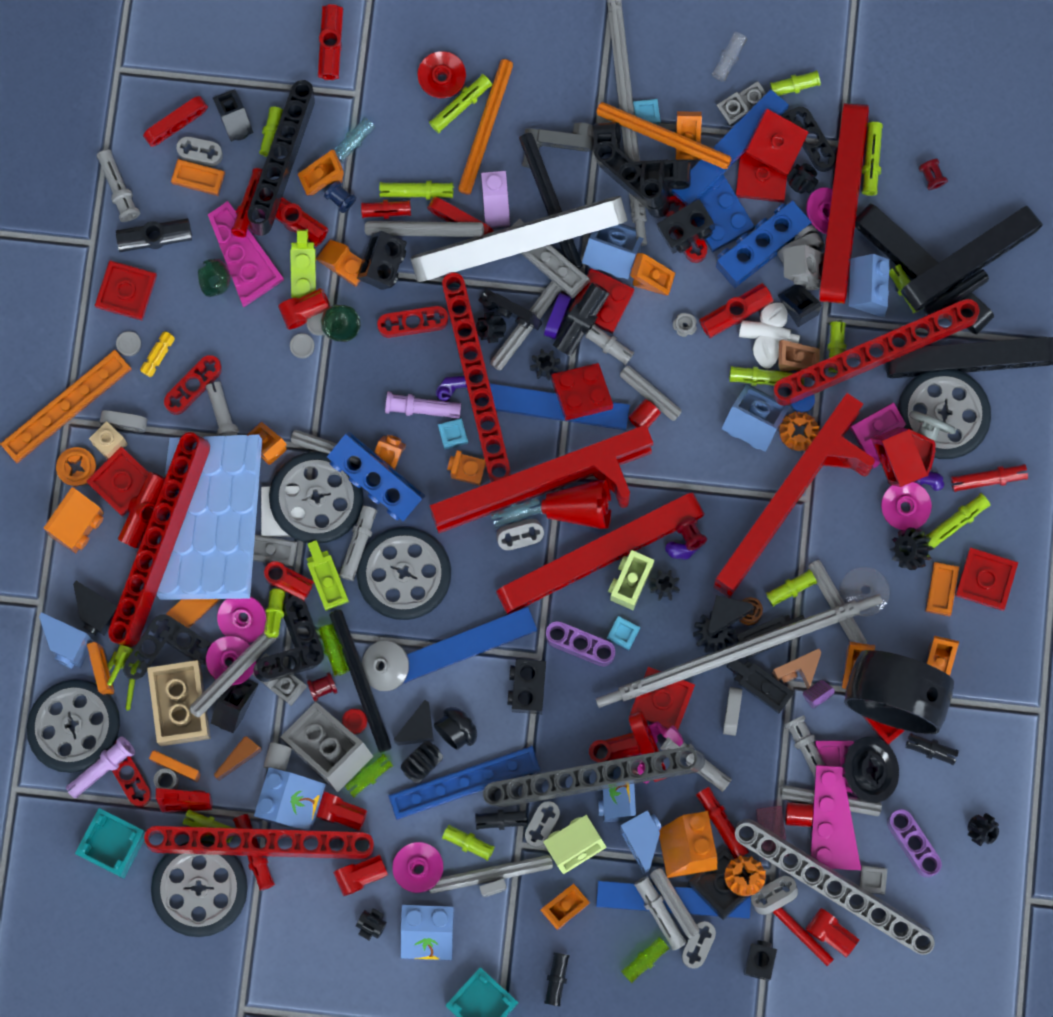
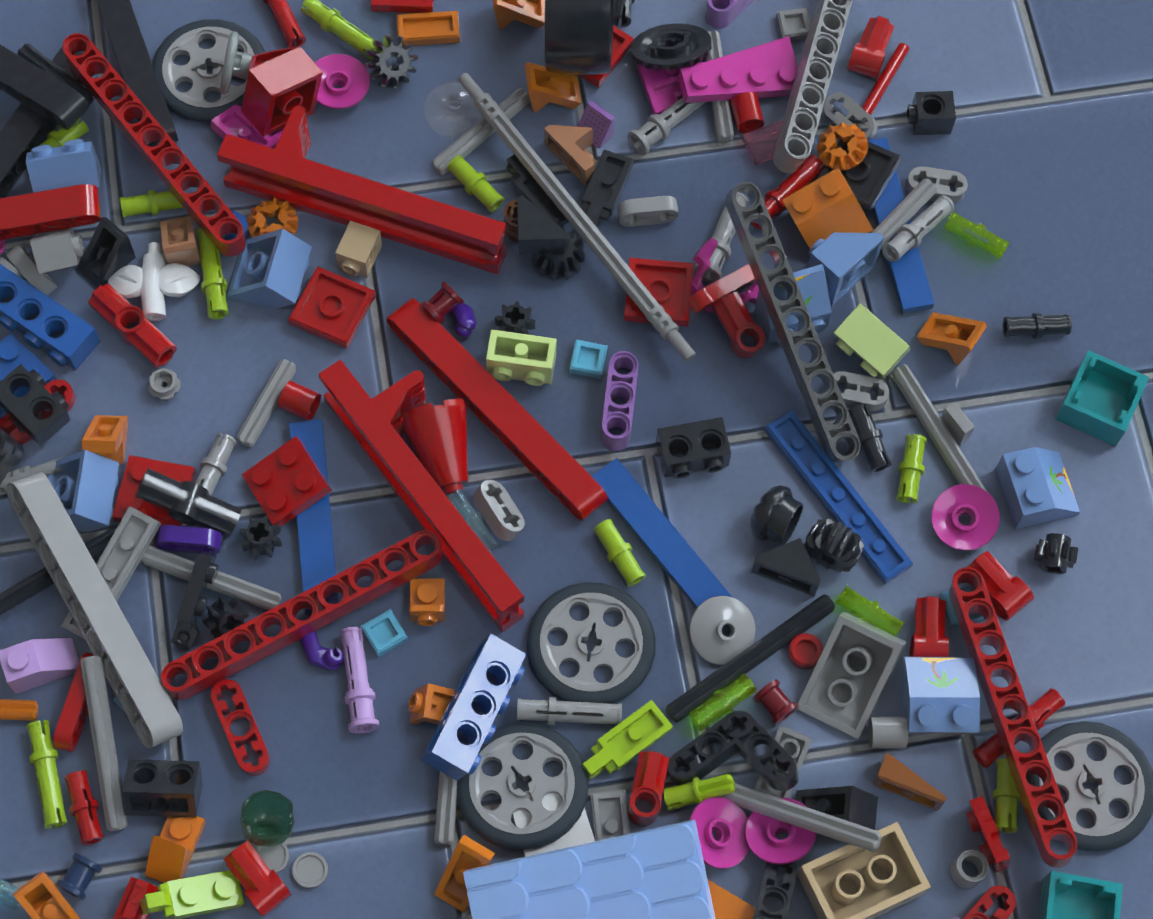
camera: 110 degrees left, 10 degrees down
(175, 766) = (945, 863): orange tile -> none
(464, 610) = (619, 552): none -> lime pin
(714, 456) = (332, 307): none -> red plate
(755, 486) = (358, 249): none -> tan brick

